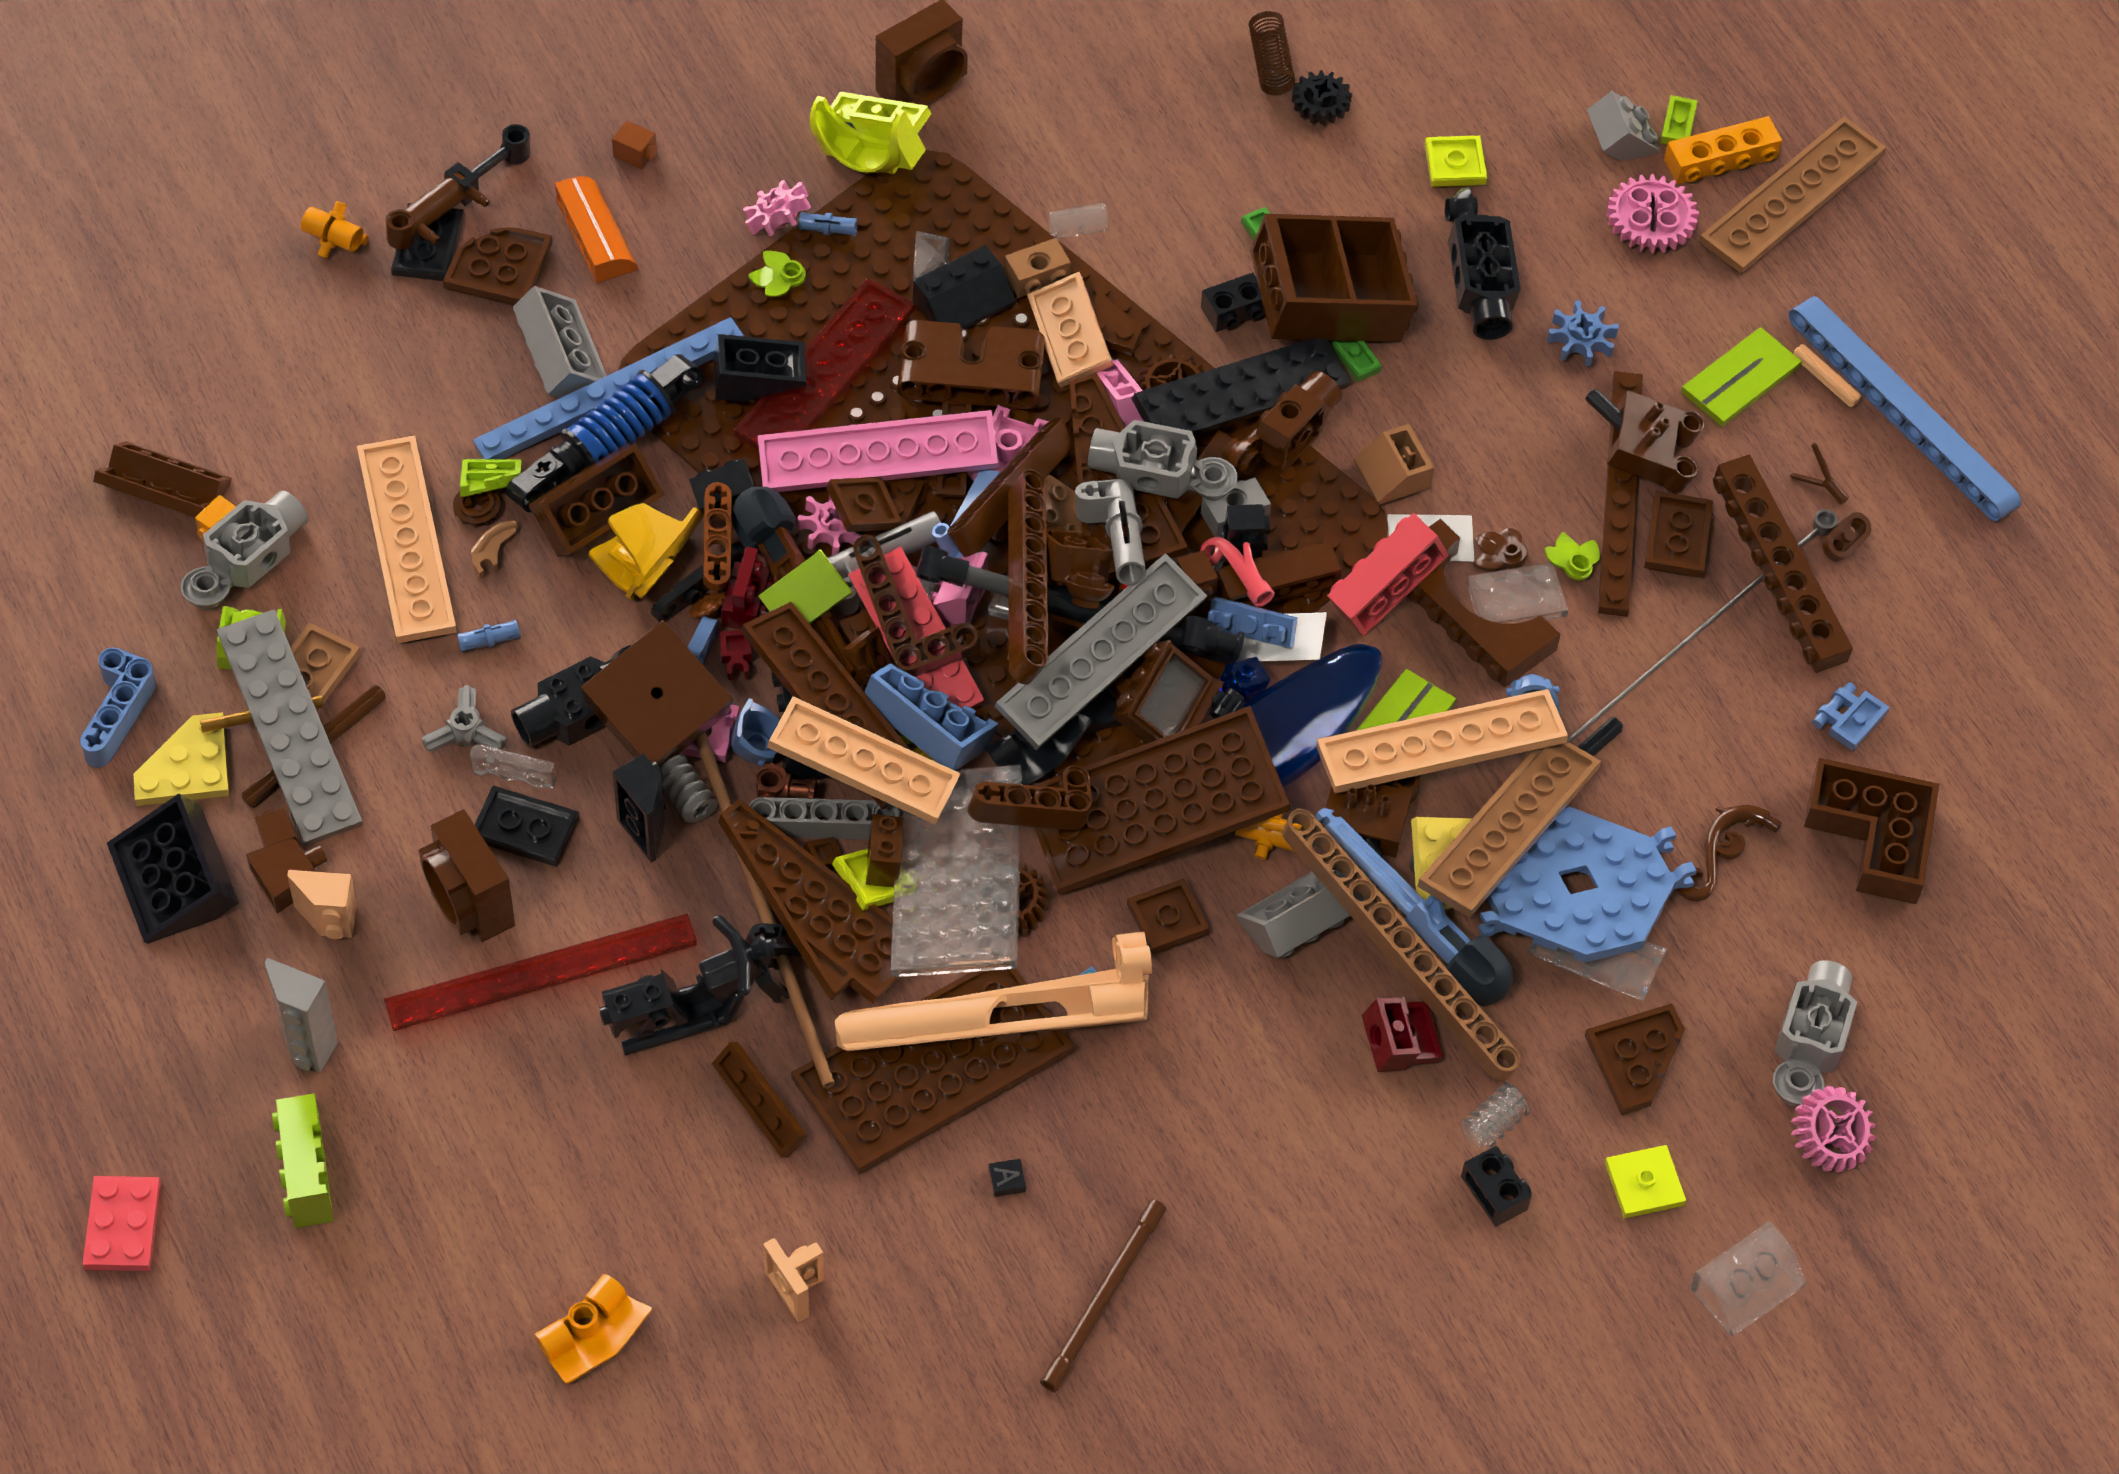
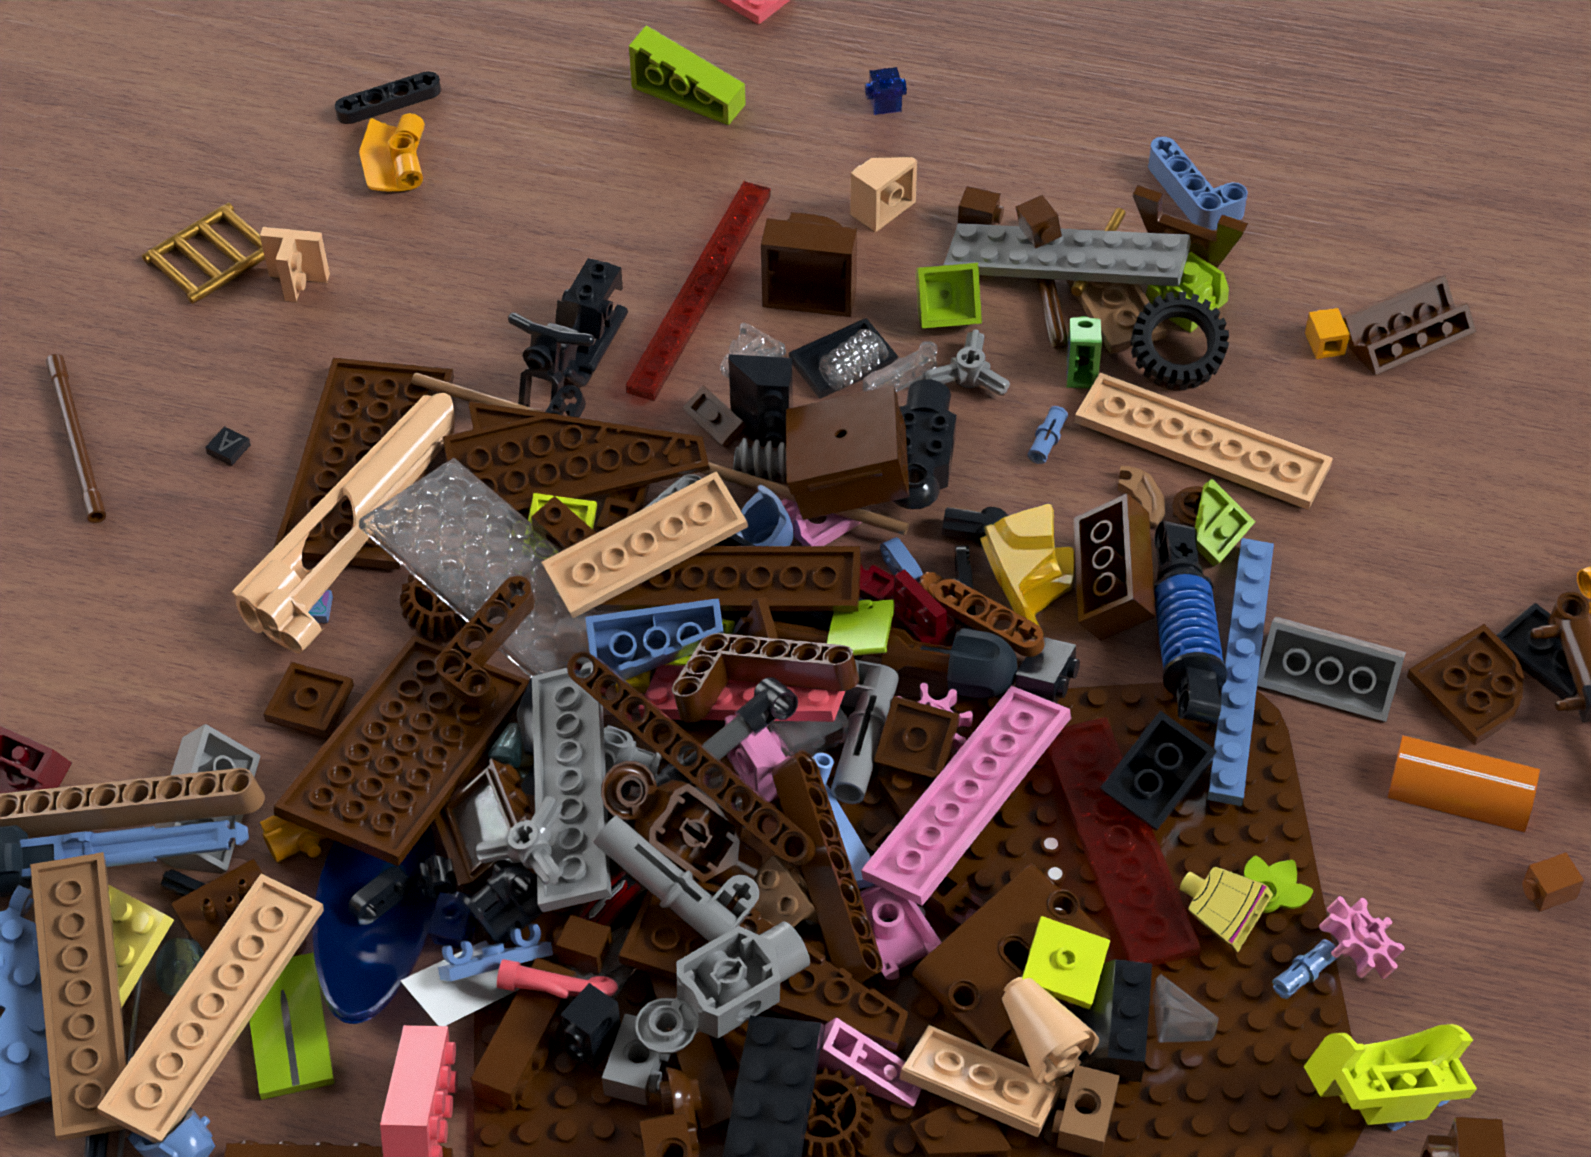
camera: 135 degrees right, 5 degrees down
(172, 870) = (1003, 144): black slope -> none
(183, 998) = (885, 90): none -> clear blue brick
(185, 764) = (1095, 196): light yellow plate -> none
(205, 633) = (1205, 243): none -> reddish brown wing
(243, 548) = (1280, 327): light grey brick -> none
(272, 864) = (939, 196): reddish brown torso -> none
(283, 746) = (1038, 221): none -> reddish brown brick
(302, 1015) = (787, 101): light grey slope -> none
(327, 575) = (1183, 308): none -> black tyre
(382, 657) = (1085, 341): none -> bright green torso
(407, 780) = (948, 295): none -> lime brick
(525, 1397) = (389, 100): none -> black beam
(535, 793) = (852, 359): none -> clear piece
(582, 885) = (754, 343): none -> clear wing
(620, 618) = (970, 523): none -> black piece
(671, 858) = (714, 416): none -> reddish brown plate
(759, 1099) = (441, 341): reddish brown plate -> none
(824, 277) = (1226, 903): none -> light yellow torso
(839, 1418) = (203, 227): none -> pearl gold bar
(955, 323) = (1066, 961): none -> neon yellow plate
(1017, 293) = (1046, 1030): none -> light nougat cone
(1091, 750) = (508, 747): none -> clear light blue cone
(1164, 622) = (528, 843): none -> light grey bush
(1278, 733) = (380, 895): none -> black beam
(1429, 801) = (176, 963): none -> clear light blue piece

